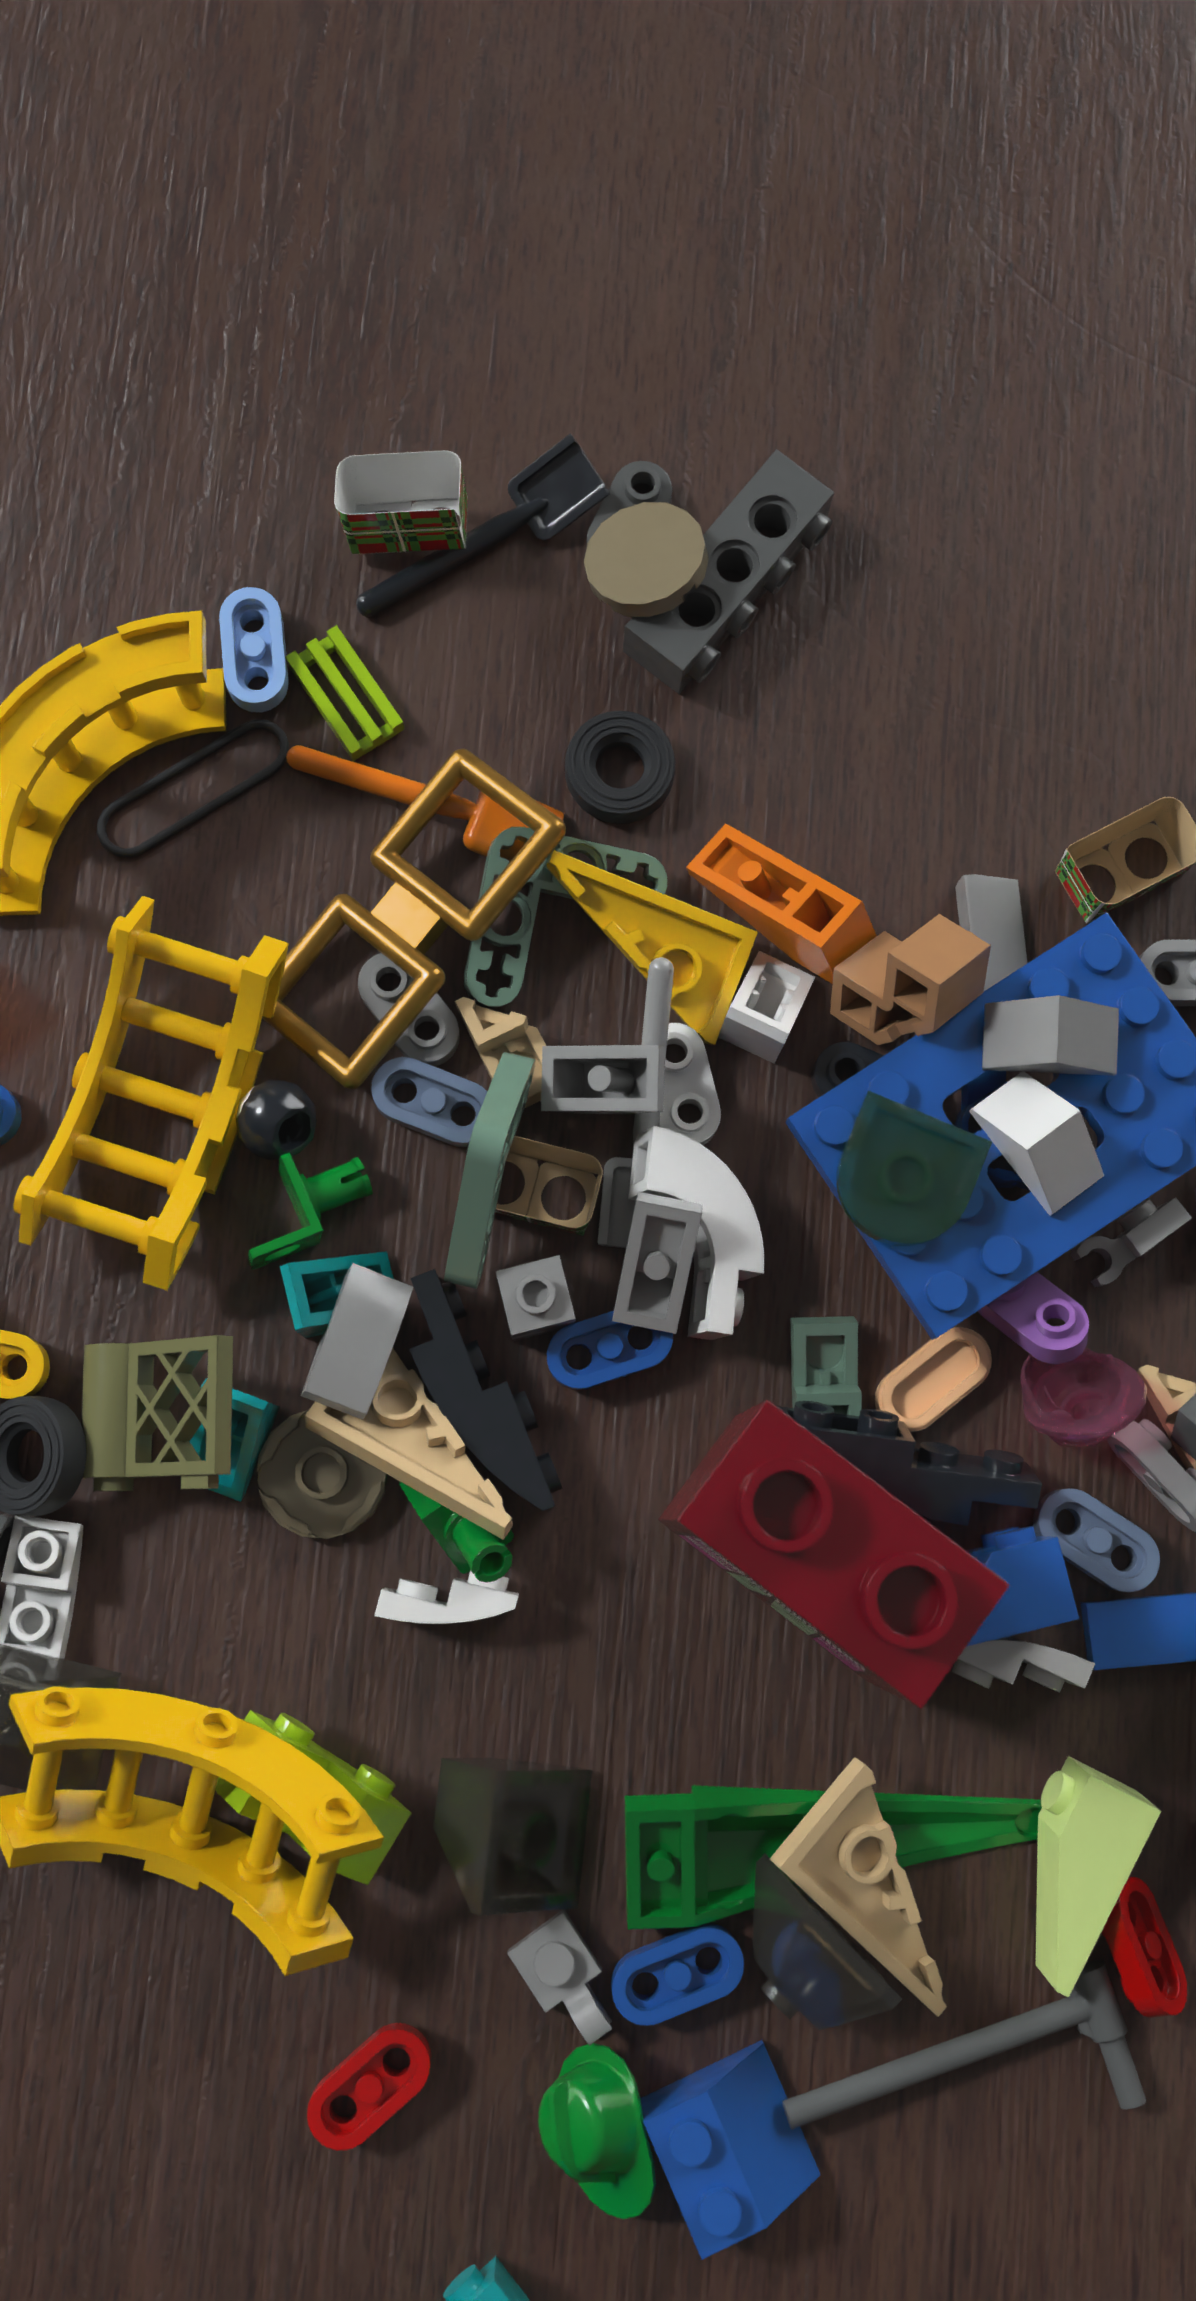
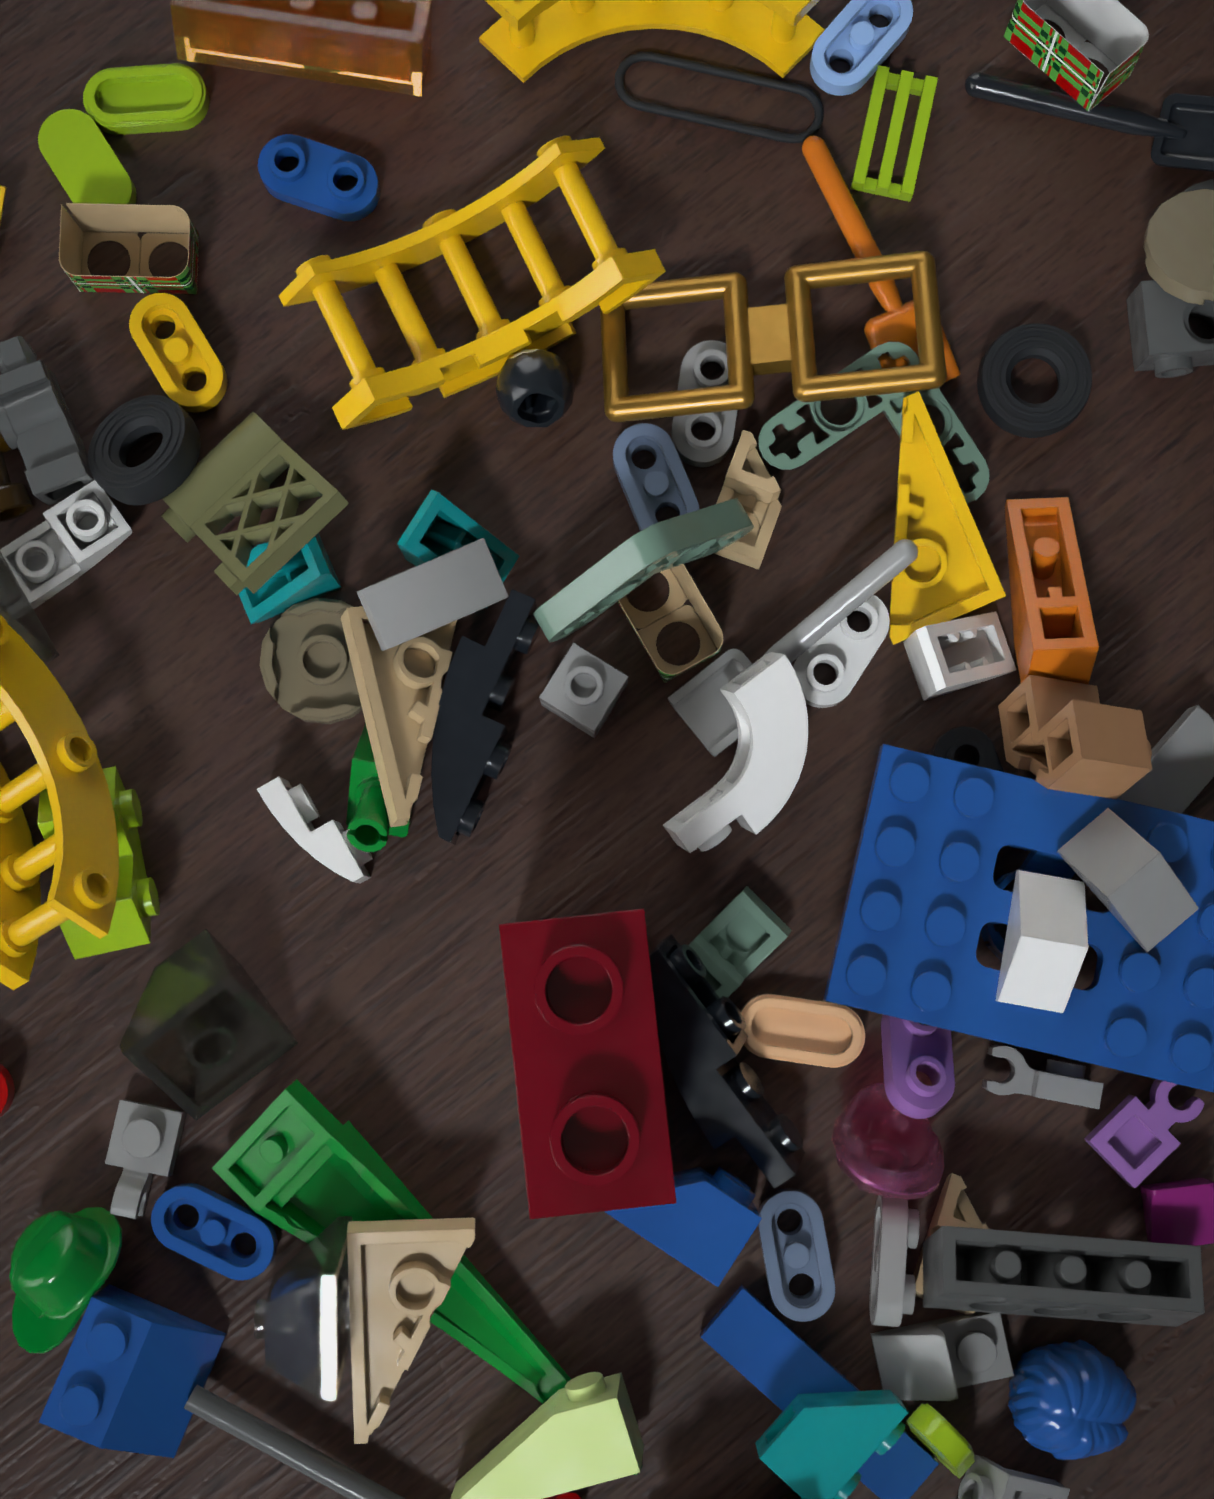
camera: 55 degrees right, 5 degrees up
(310, 1199) = (504, 467): green bracket -> none
(603, 1079) = (783, 585): light grey slope -> none
(609, 1349) = (602, 775): blue plate -> none
(657, 1262) = (690, 750): light grey slope -> none
(906, 1172) = (924, 866): tile -> none
(1003, 1659) = (647, 1261): white slope -> none

